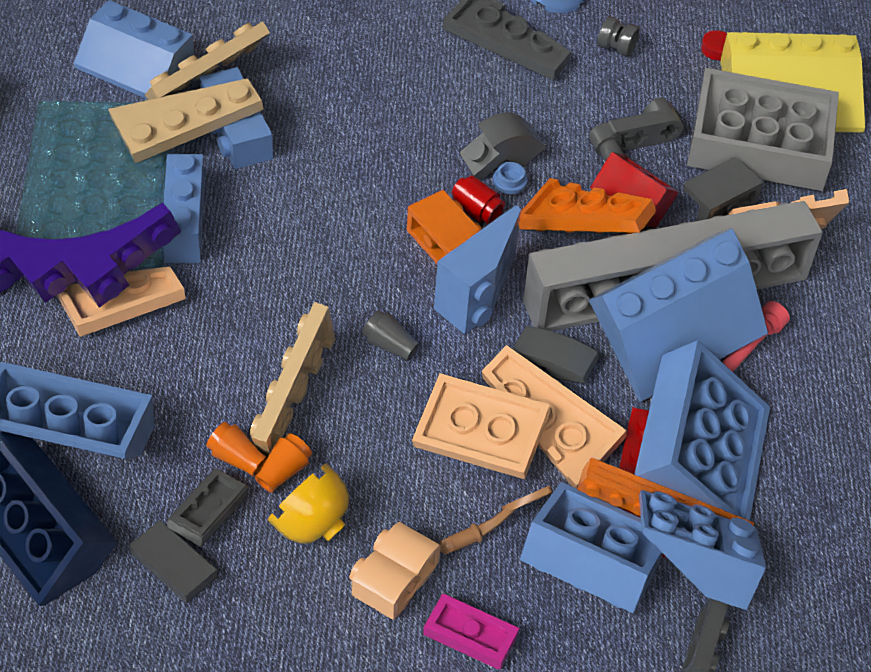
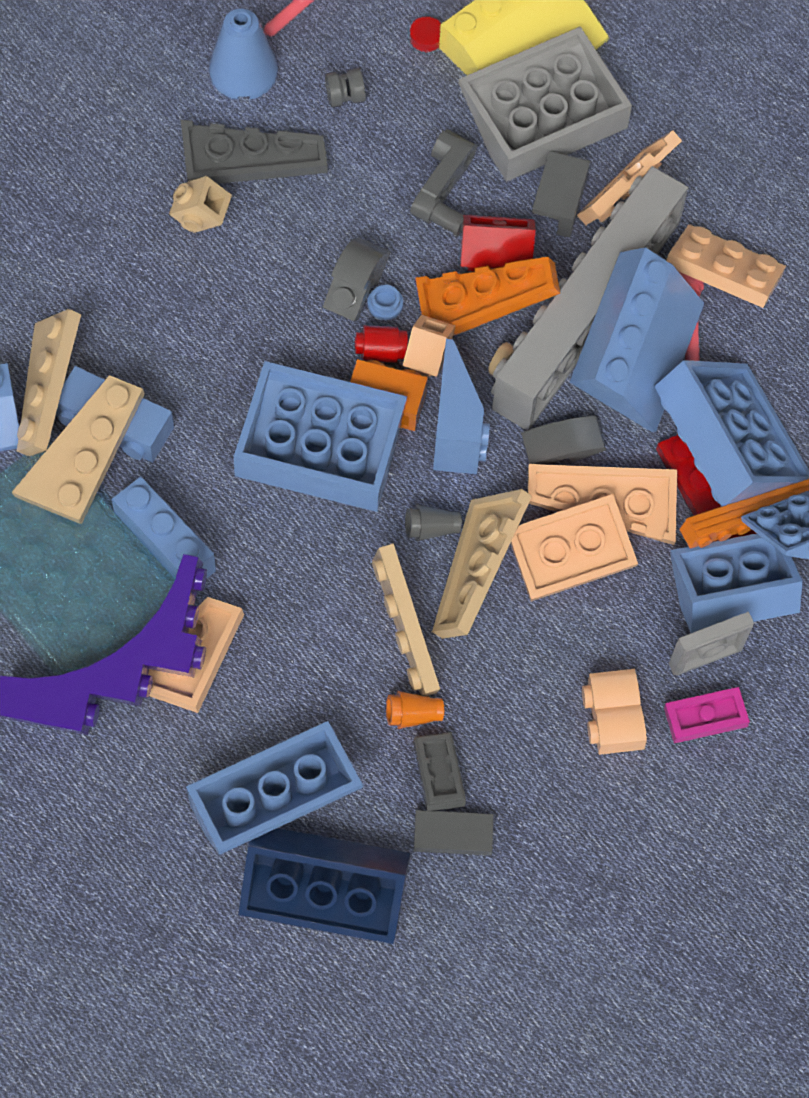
camera: 40 degrees left, 15 degrees up
(283, 462) = (457, 692): orange cone -> none
(314, 508) = (517, 711): yellow cylinder -> none
(361, 220) = (319, 436): none -> medium blue slope
(394, 381) = (480, 550): none -> tan wing
(433, 35) = (200, 204): none -> tan brick
(475, 533) = (654, 583): medium nougat piece -> none
(505, 201) = (427, 346): none -> light nougat brick
(523, 571) = (710, 644): none -> light grey tile
(814, 321) = (726, 265): none -> light nougat plate

